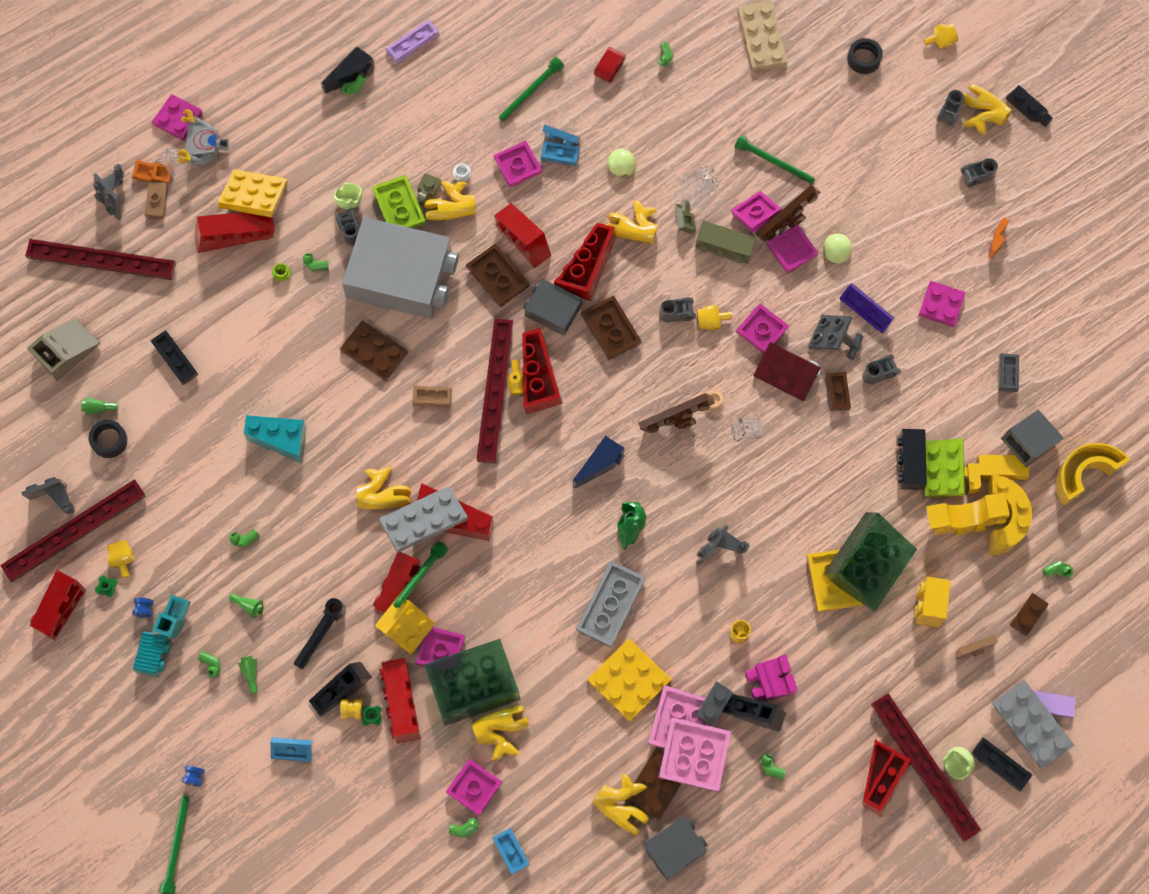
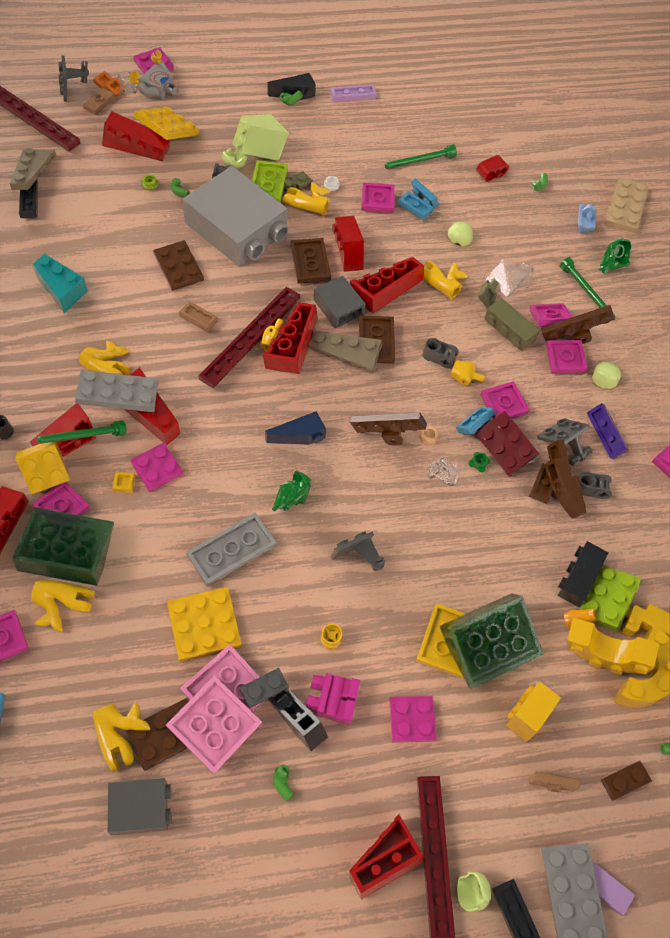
camera: 25 degrees right, 10 degrees down
(151, 322) = (29, 166): none -> dark tan wing
(363, 160) = (260, 136): none -> yellowish green slope
(477, 597) = (123, 482): none -> yellow tile
(495, 566) = (156, 467): none -> dark pink plate
(600, 352) = (355, 350): none -> dark tan wing
(733, 77) = (586, 218): none -> light blue hips
(747, 363) = (475, 420): none -> dark azure plate
(775, 397) = (478, 456): none -> green plate
(783, 109) = (616, 255): none -> green hair
(841, 660) = (412, 719): none -> dark pink plate
(858, 386) = (565, 486): none -> reddish brown slope
(929, 499) = (583, 614): none -> light orange cone

